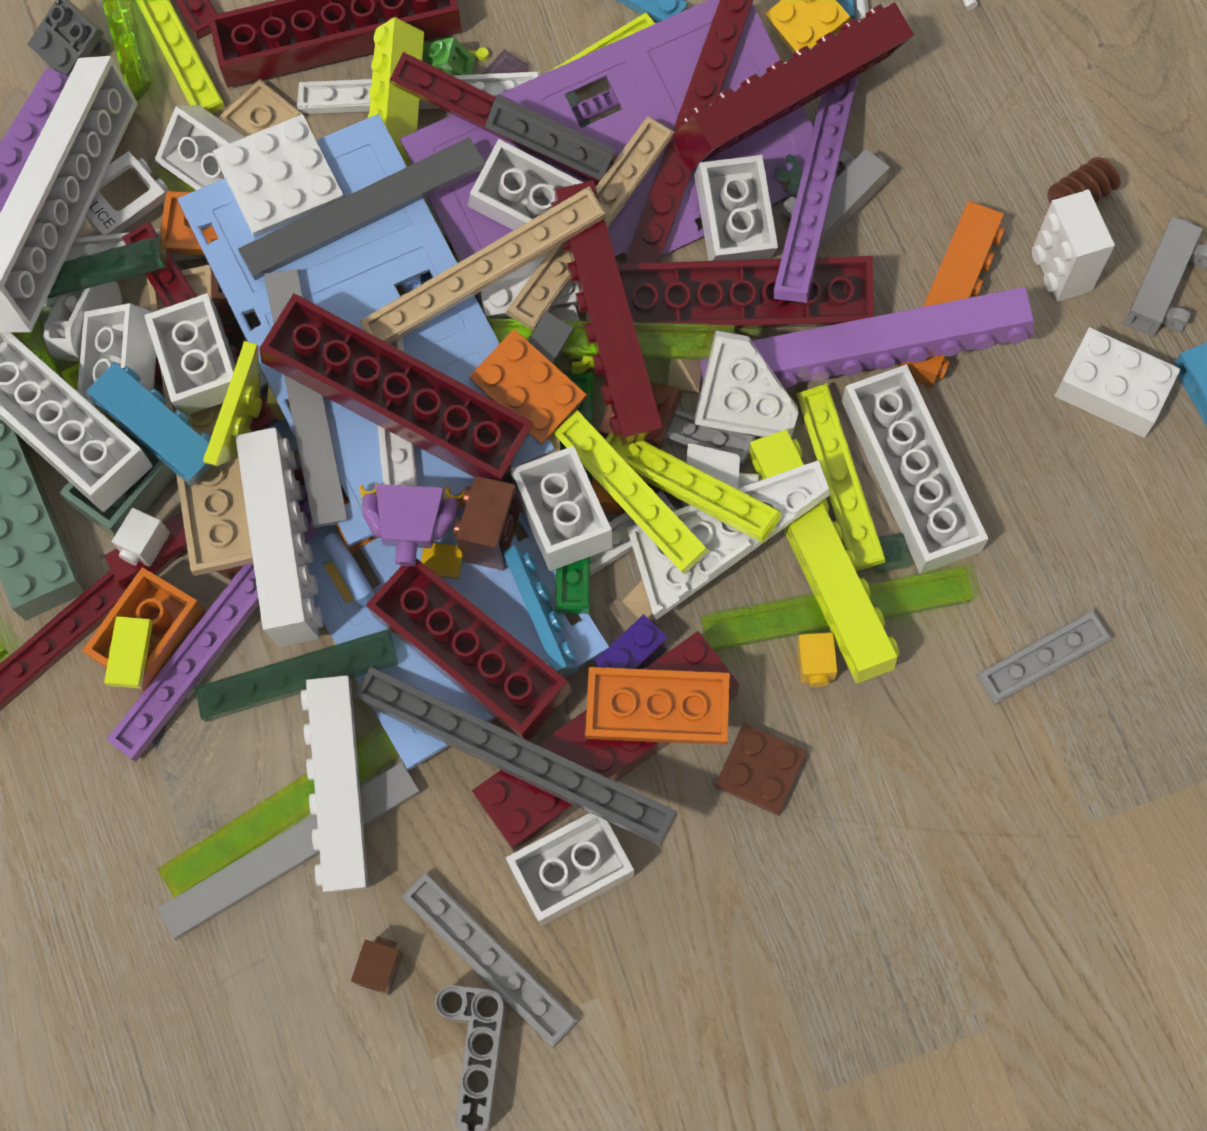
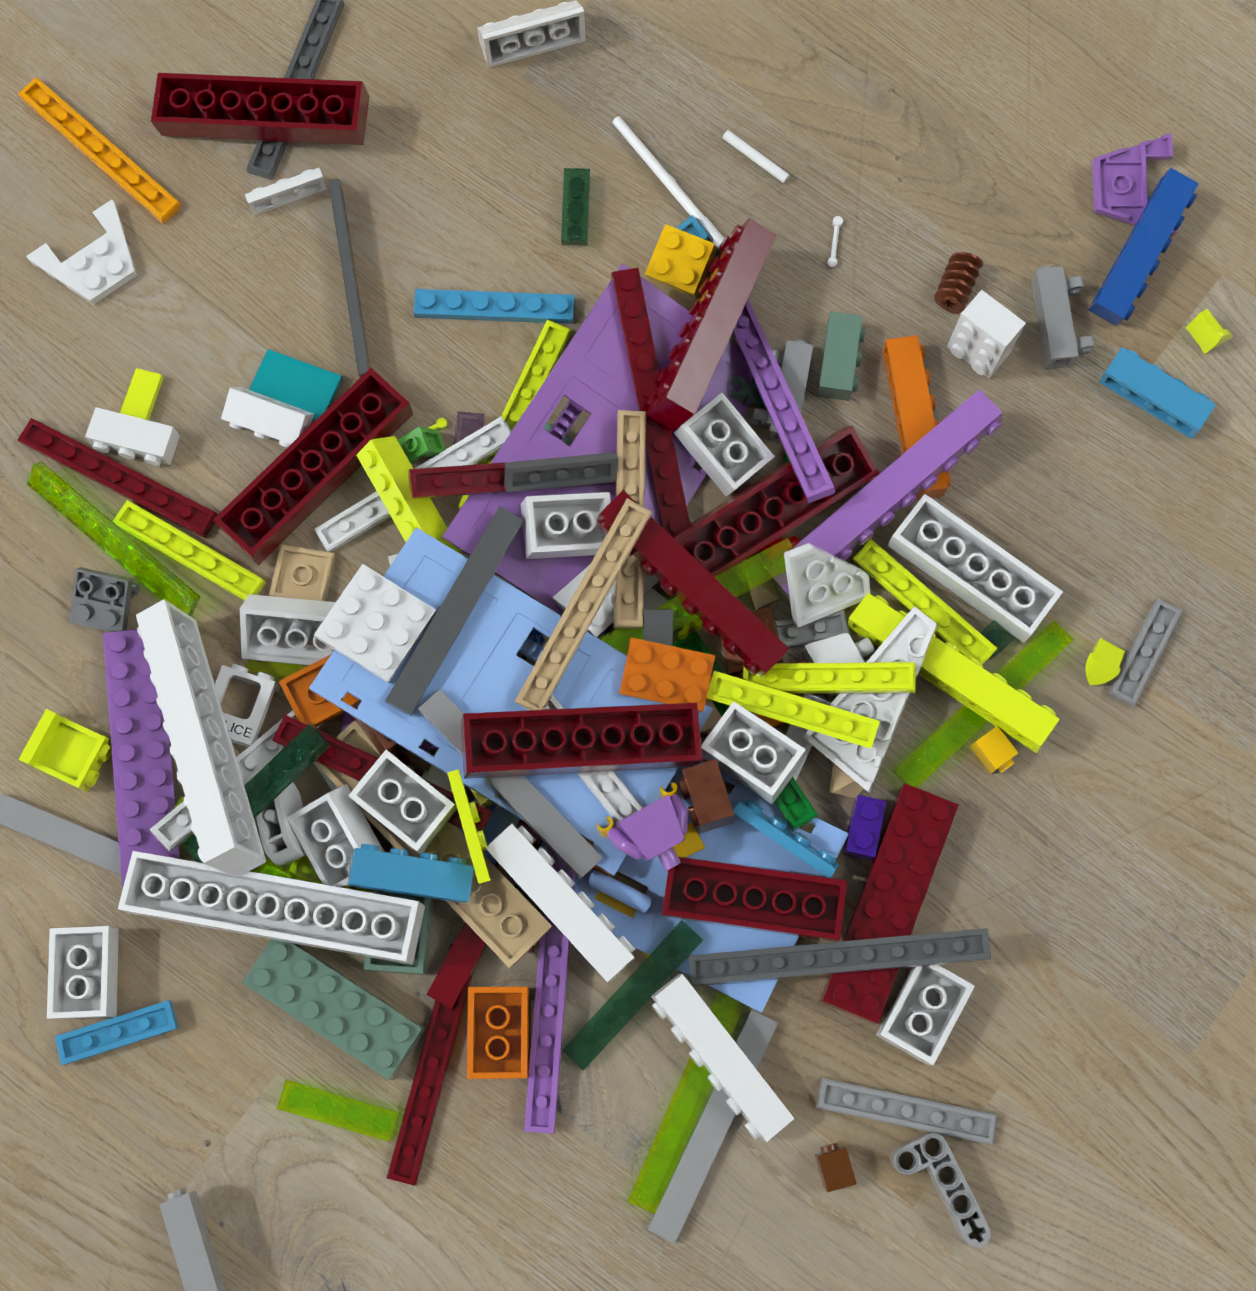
camera: 35 degrees left, 5 degrees up
(128, 652) = (505, 1058): neon yellow tile -> none
(140, 538) = (450, 966): white brick -> none
(657, 706) = (917, 857): orange plate -> none
(760, 769) = (1005, 854): copper plate -> none
(913, 195) = (841, 356): none -> sand green brick
(990, 639) = (1103, 662): none -> neon yellow tile
(997, 73) = (837, 223): none -> white hinge
(1117, 382) = (1072, 418): white brick -> none

